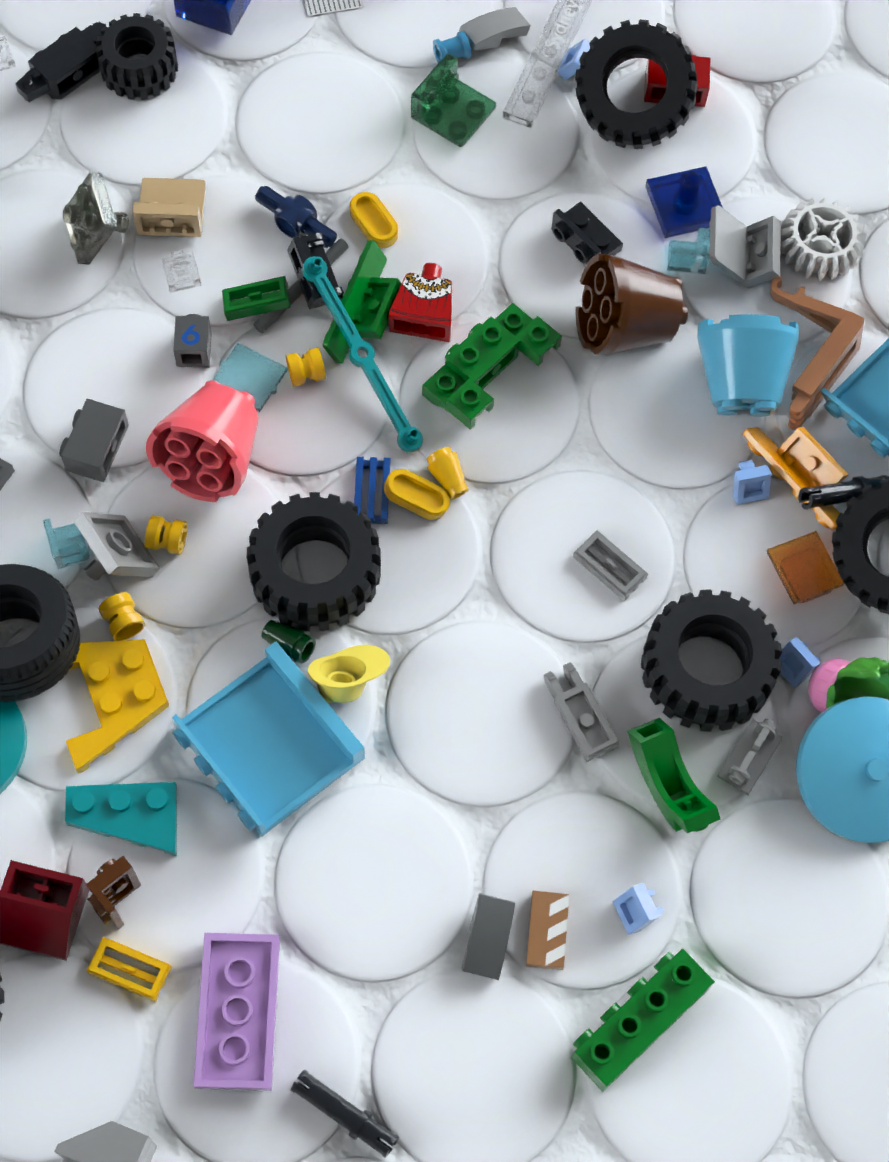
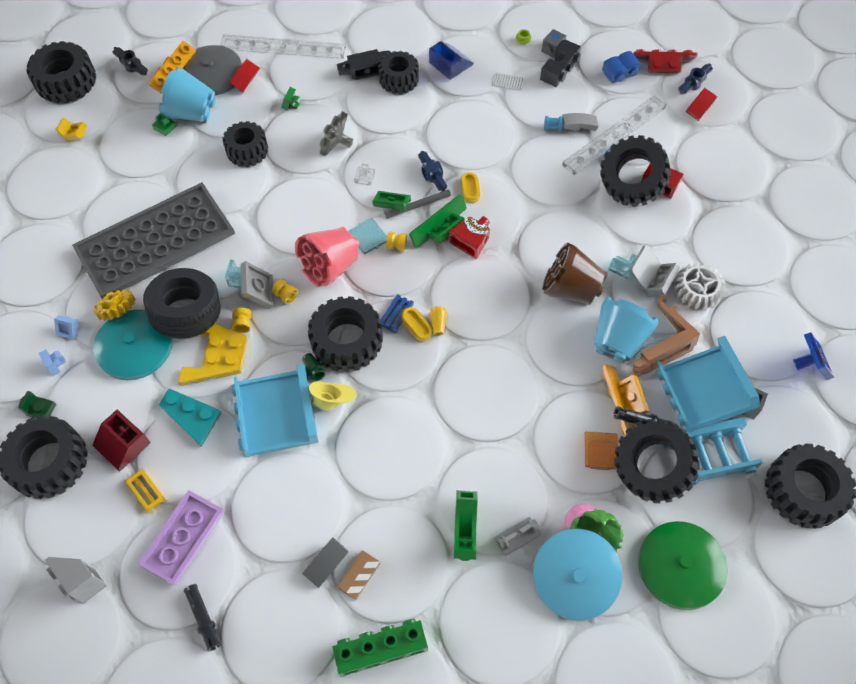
camera: 30 degrees right, 5 degrees down
(94, 440) = (278, 234): dark grey brick -> none
(112, 884) = (154, 446): reddish brown bracket -> none
(170, 207) = (375, 144): tan bracket -> none
(192, 341) = (349, 208): dark grey brick -> none
(299, 251) = (426, 197): black hinge -> none
(408, 437) = (429, 295): teal piece -> none
(449, 104) = (536, 147): clear green bracket -> none
(483, 357) = (487, 272): green bracket -> none
(582, 714) = (439, 472): light grey hinge -> none
(584, 233) = (573, 233): black bracket -> none
(605, 577) = (502, 417): light grey tile -> none
(637, 908) = (410, 586): light blue tile -> none
(683, 200) = (633, 237): clear blue tile -> none
(721, 619) = (529, 450): black tyre -> none
(751, 483) = (594, 393): light blue tile -> none
(797, 662) = (568, 497): light blue tile -> none

